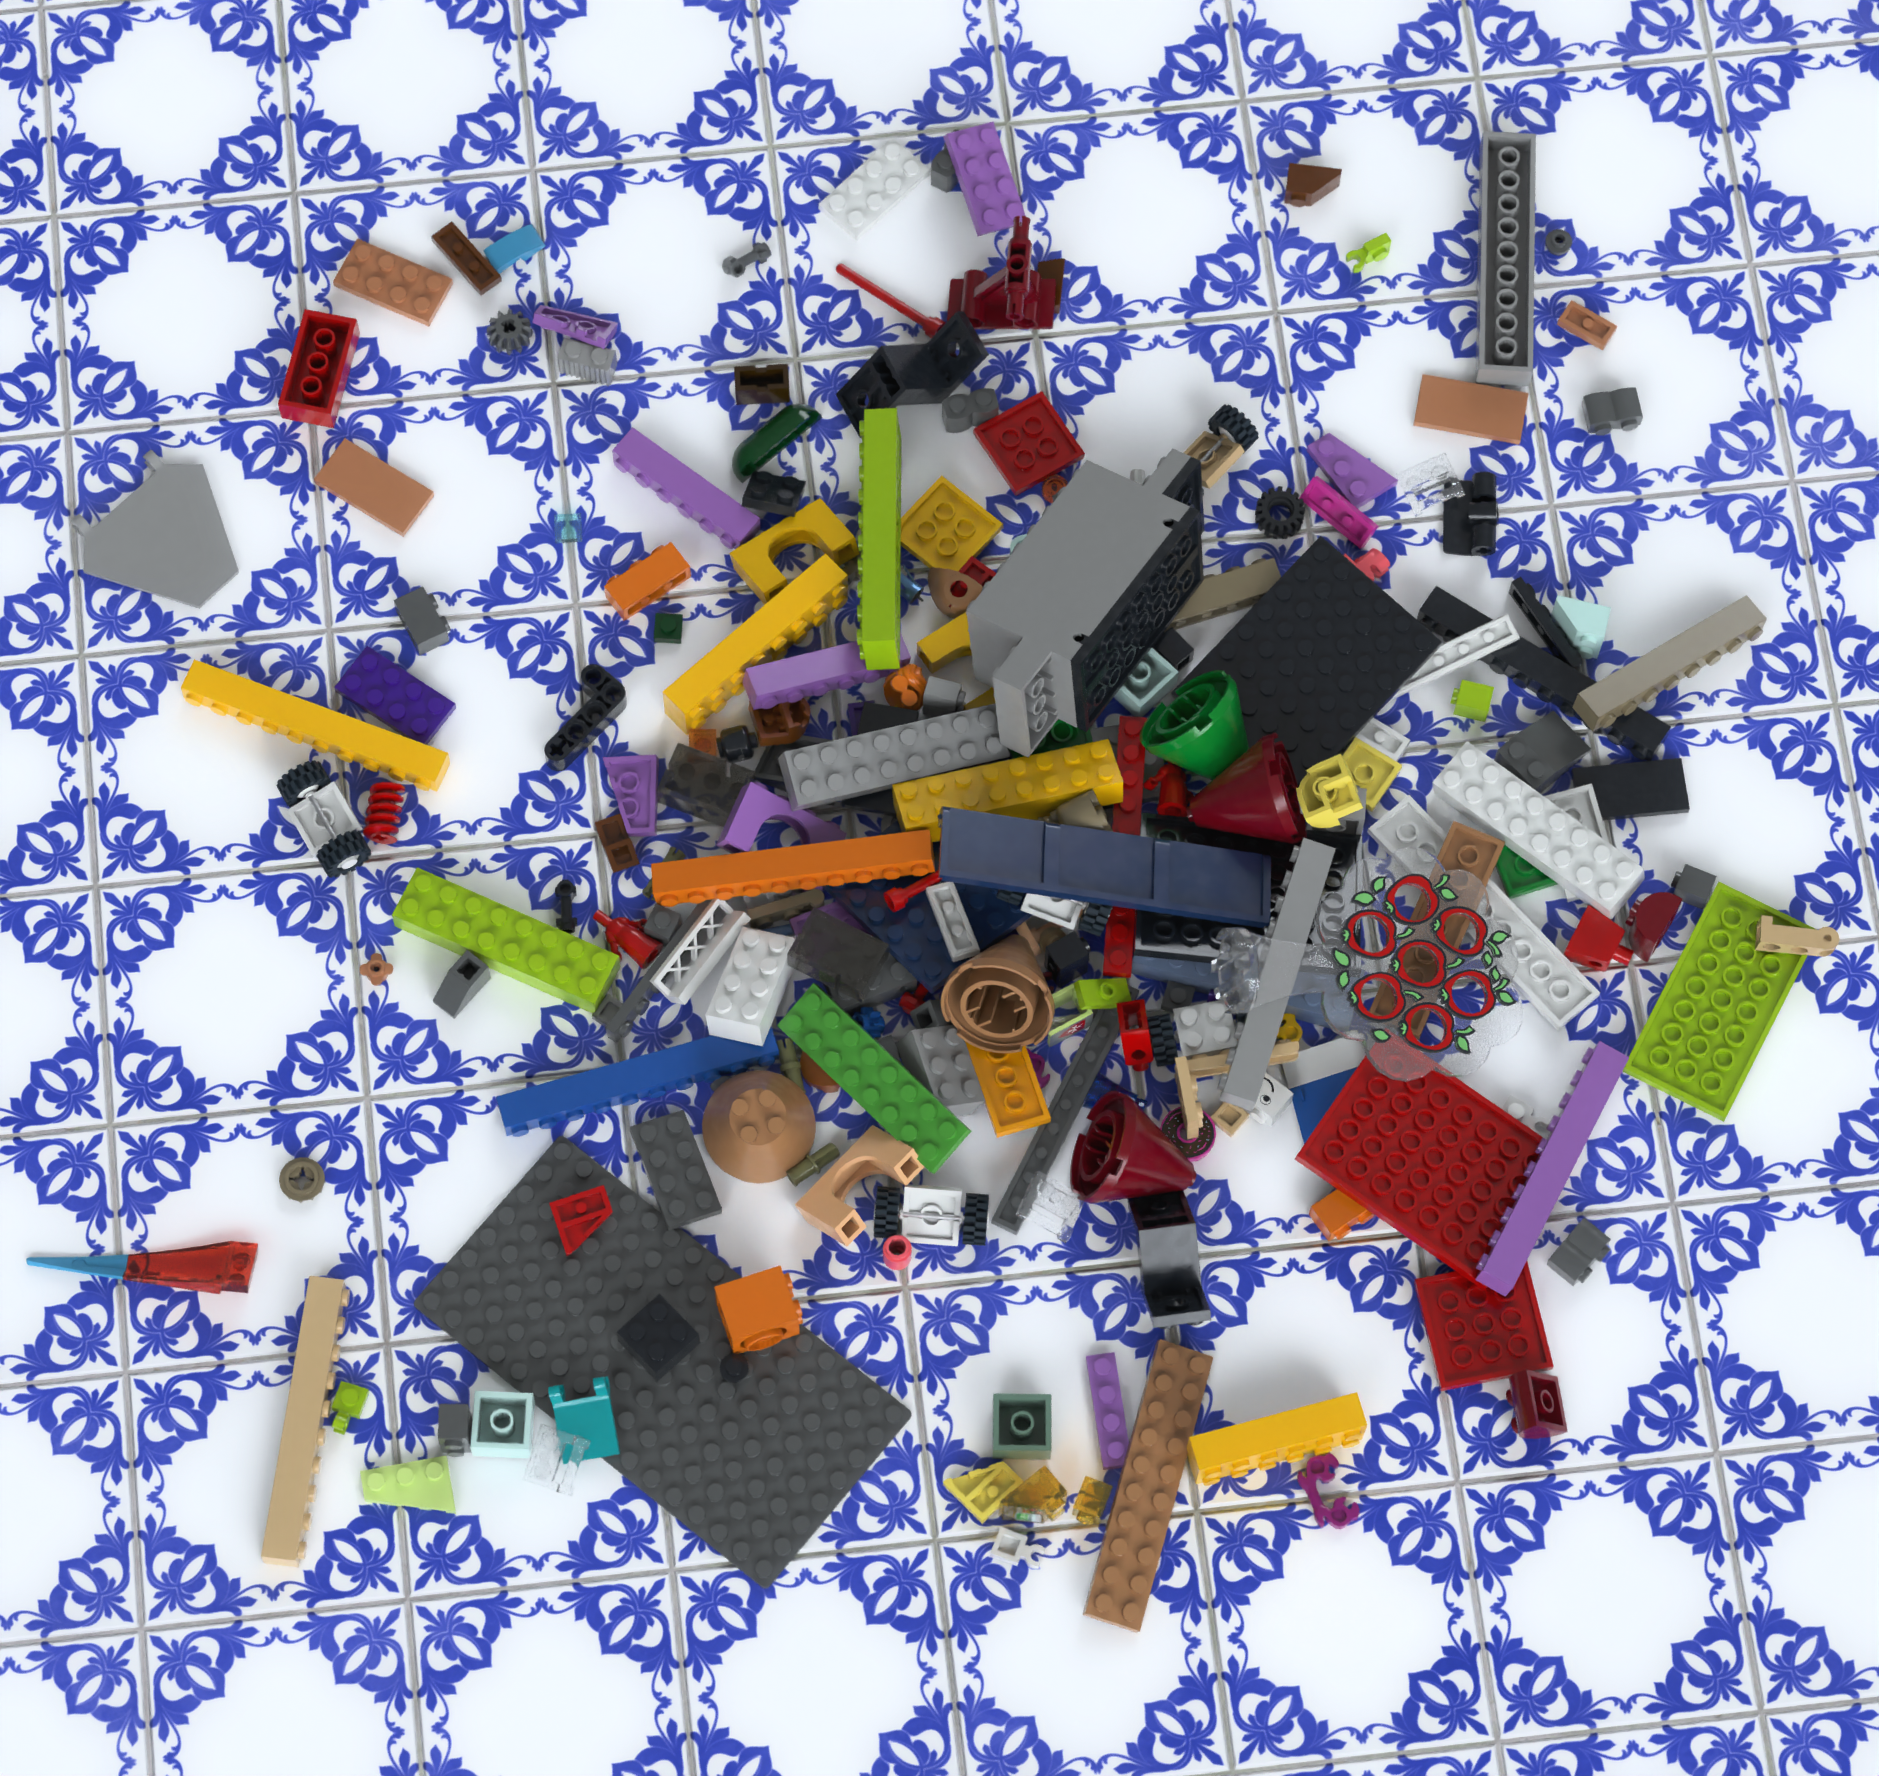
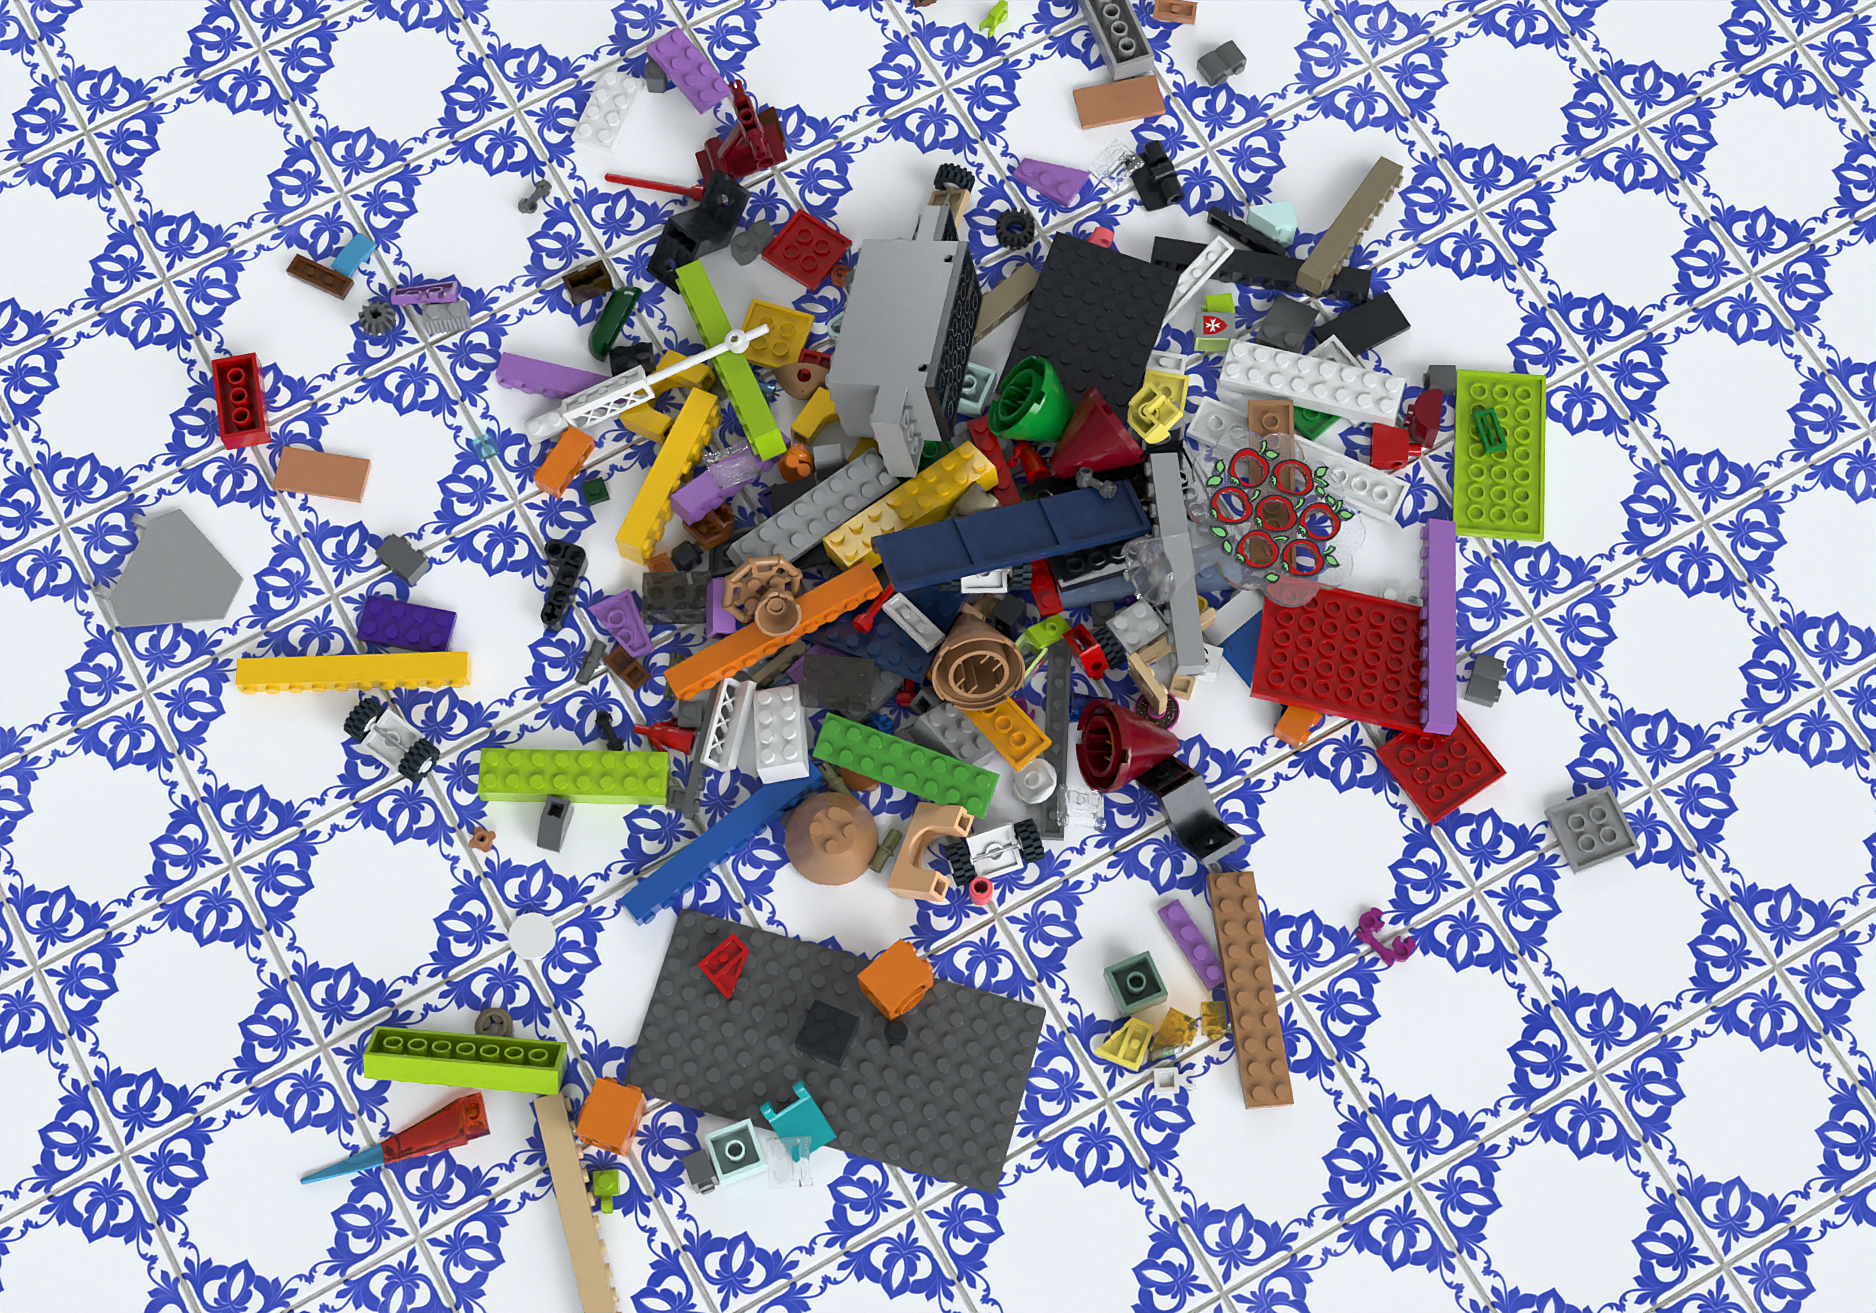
camera: 20 degrees left, 0 degrees up
(255, 1203) = (465, 1060): none -> lime brick
(381, 812) = (435, 716): red piece -> none
(385, 1098) = (532, 936): none -> white tile
(385, 1329) = (611, 1116): none -> orange brick
(393, 282) = (270, 316): nougat plate -> none
(412, 1484) = (684, 1229): yellowish green wing -> none
(579, 820) = (590, 662): none -> dark grey pin
(662, 529) = (555, 423): none -> white bar
(675, 1170) = (782, 898): dark grey plate -> none
(722, 522) = (604, 396): none -> white fence
(802, 849) = (777, 613): none -> medium nougat helmet
(804, 800) = (757, 577): none -> medium nougat plate
(829, 668) = (735, 470): none -> clear plate
(1013, 1156) = (1034, 781): none -> white tile
(1174, 649) = (984, 356): black brick -> none
(1220, 838) = (1085, 480): none -> dark grey bar
(1276, 1439) = (1331, 912): yellow brick -> none
(1338, 512) = (1058, 211): dark pink plate -> none
(1453, 724) = (1213, 331): none -> piece
(1536, 1405) = (1508, 807): dark red brick -> none
(1621, 1471) = (1592, 830): none -> light grey plate
(1717, 990) = (1482, 437): none -> green tile
(1794, 939) = (1532, 388): tan leg -> none

